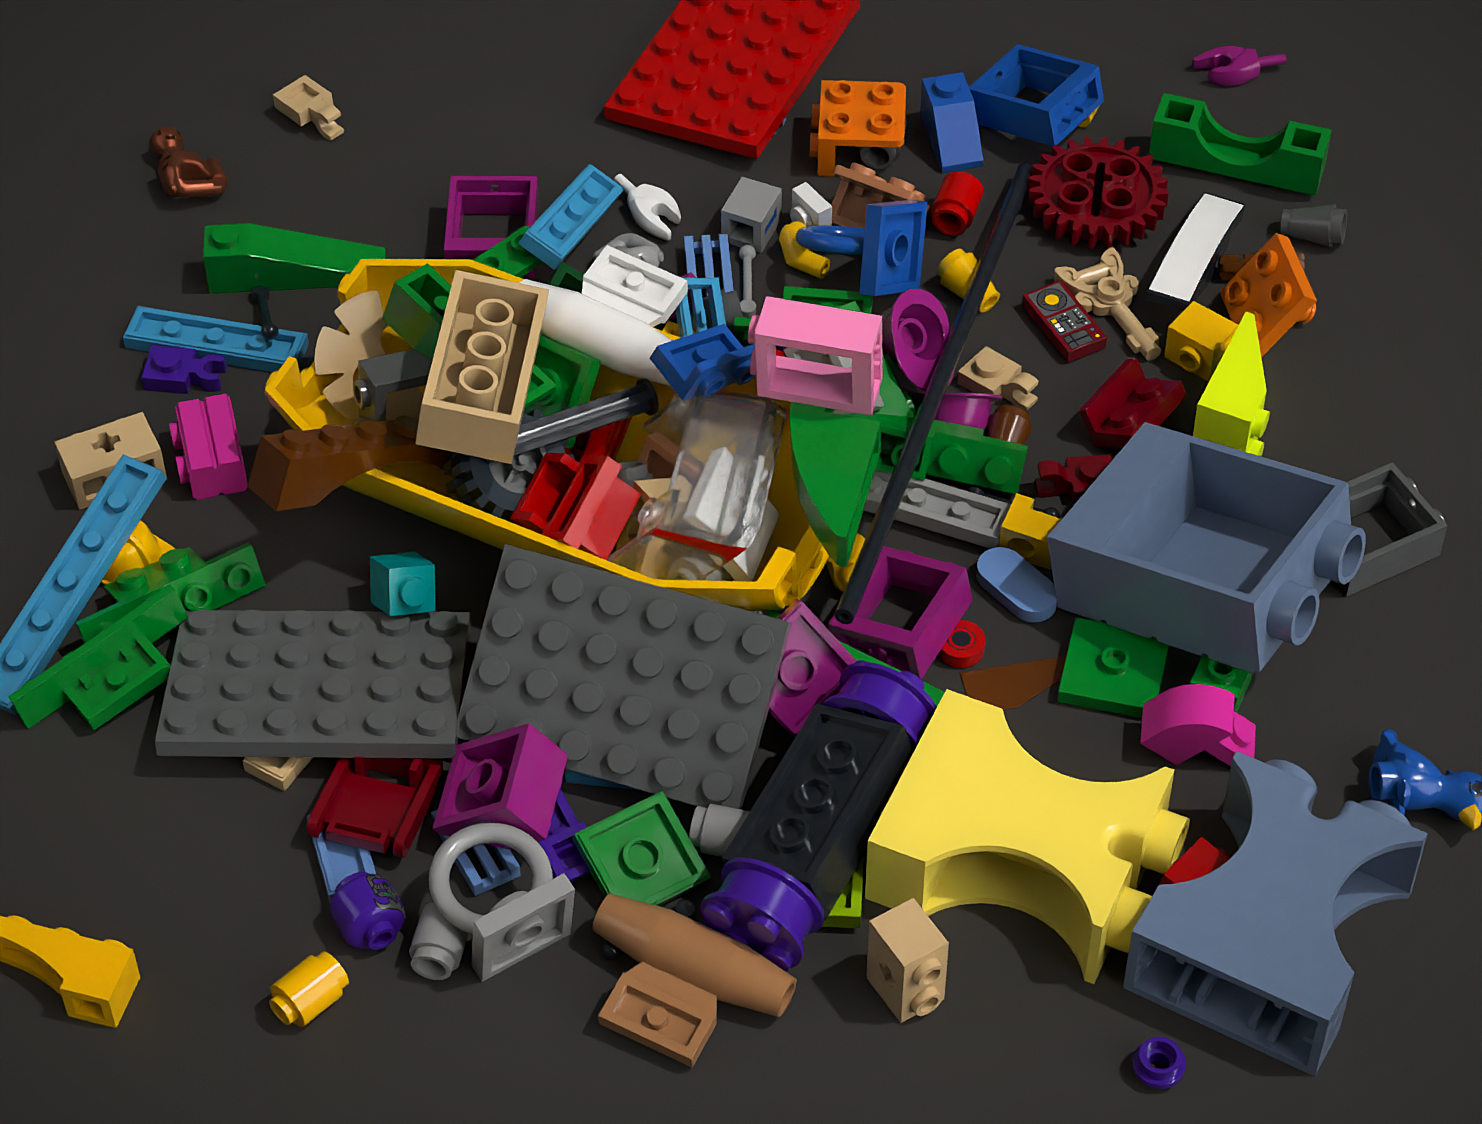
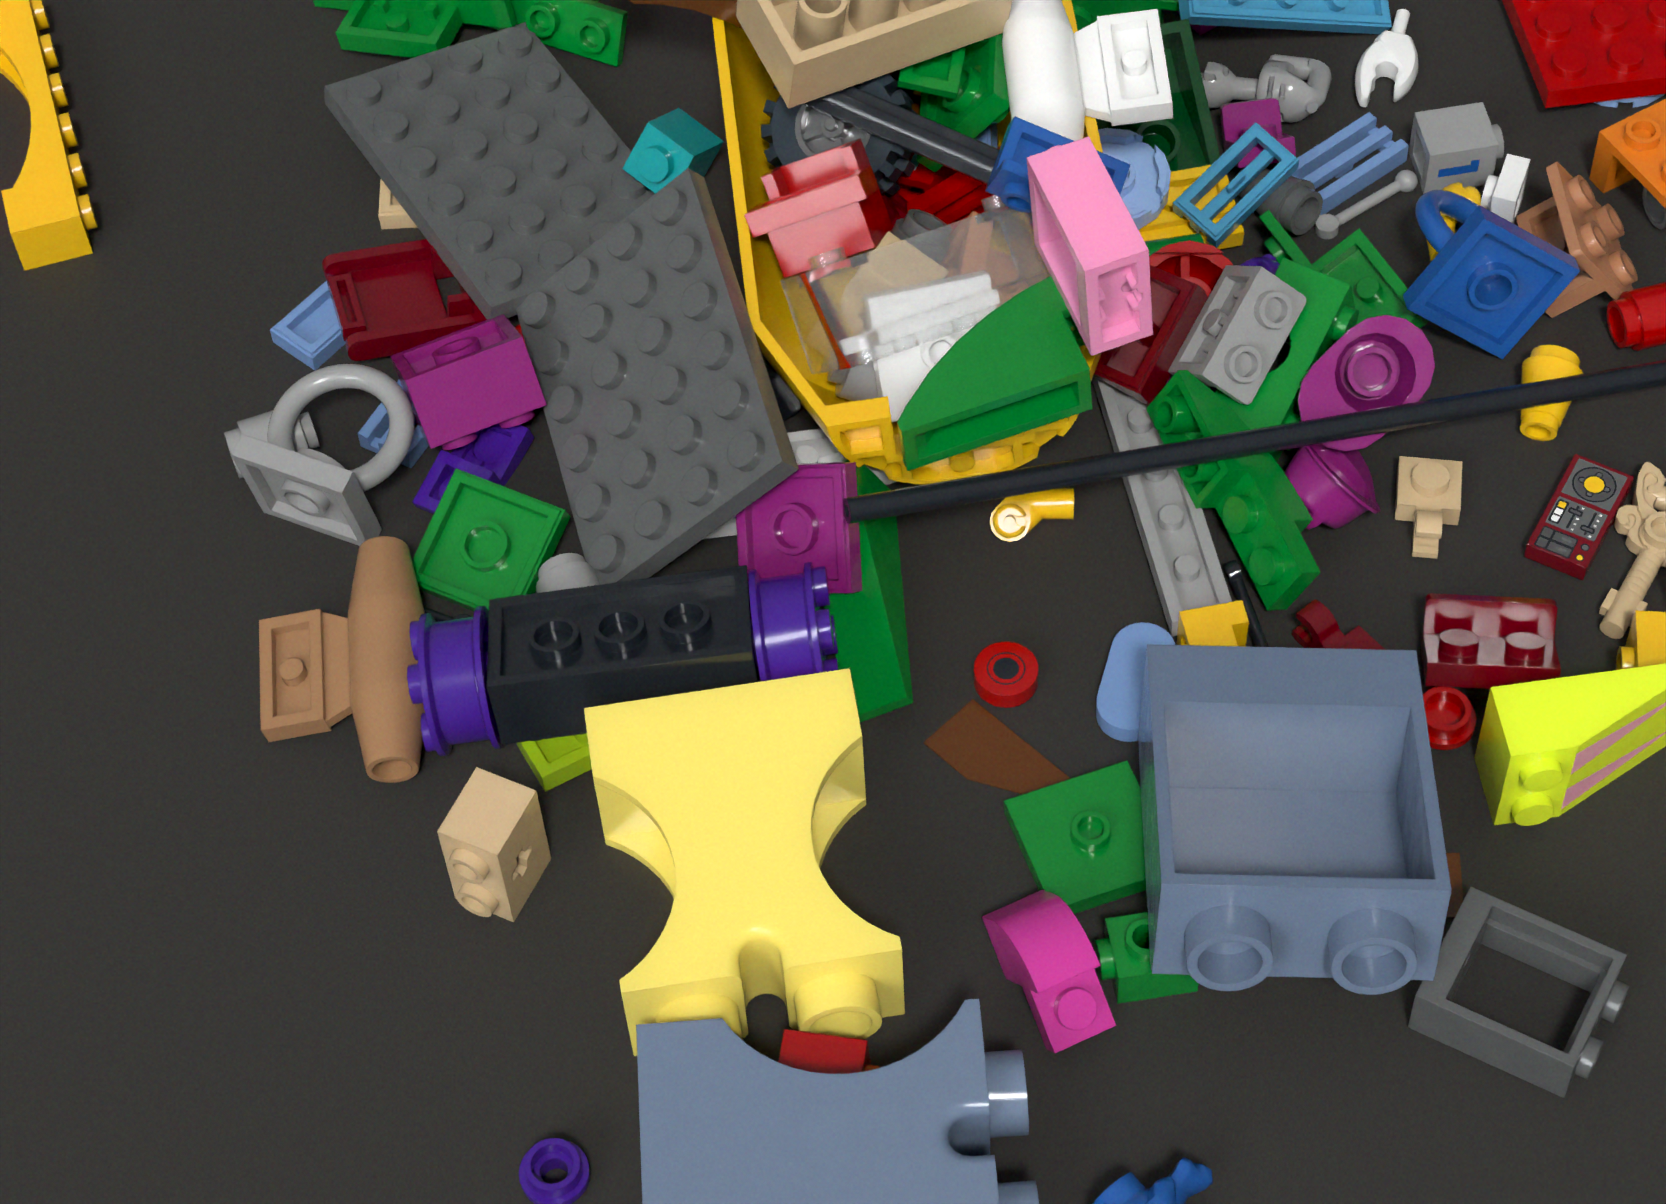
camera: 60 degrees right, 5 degrees up
(308, 989) = (141, 376): yellow brick -> none
(367, 909) = (261, 365): dark purple head -> none
(903, 648) = (988, 624): magenta window -> none
(1009, 424) = (1345, 551): reddish brown cone -> none

